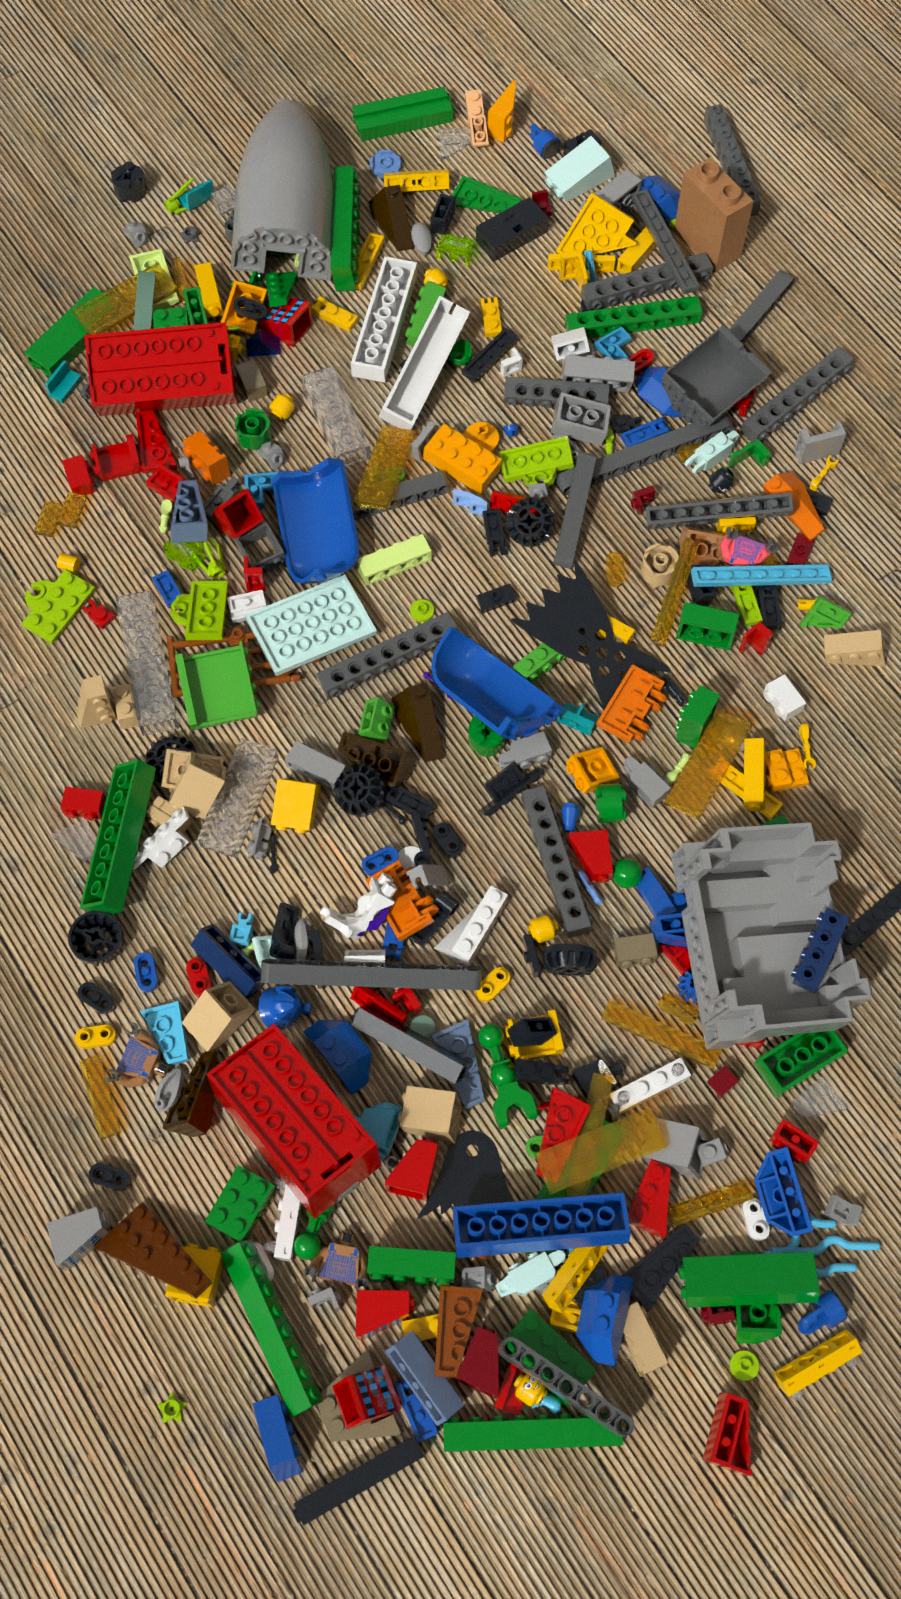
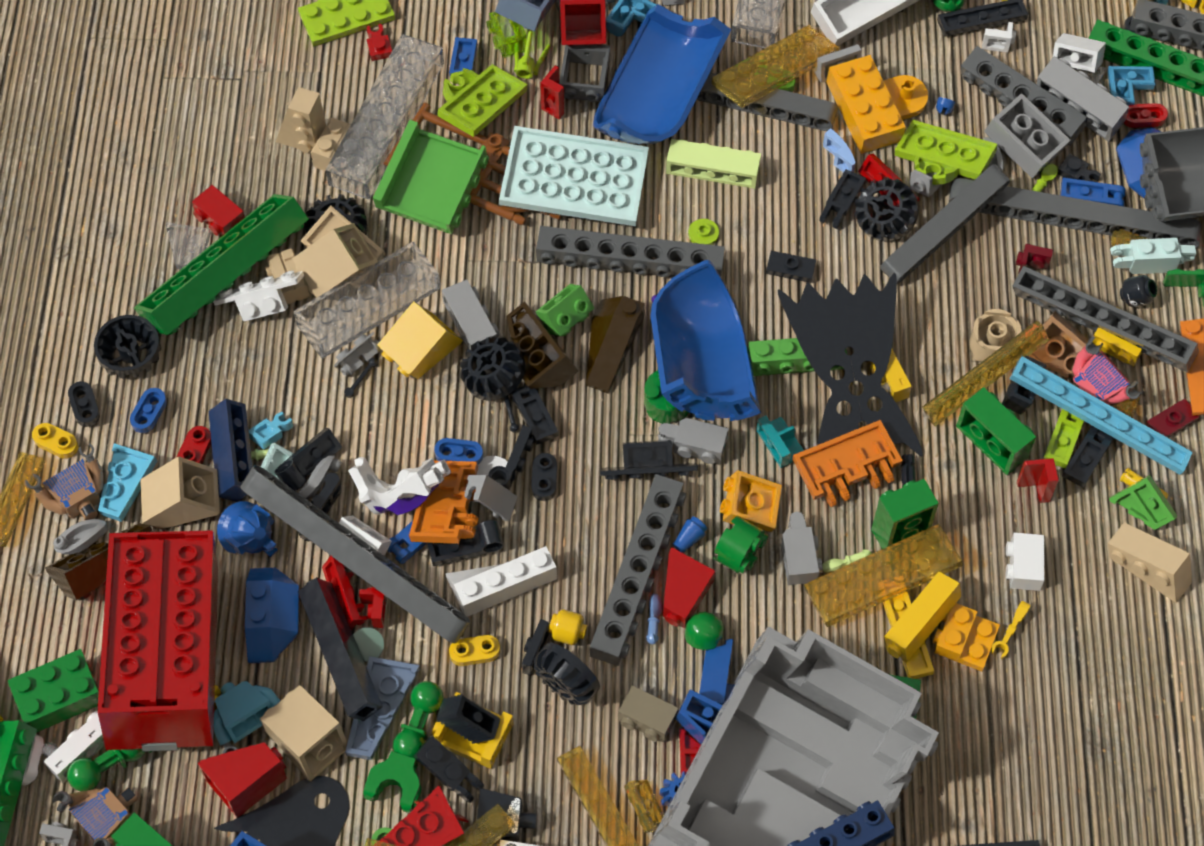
camera: 35 degrees right, 5 degrees down
(244, 604) = (527, 116): white plate -> none
(615, 571) = (942, 315): clear yellow plate -> none

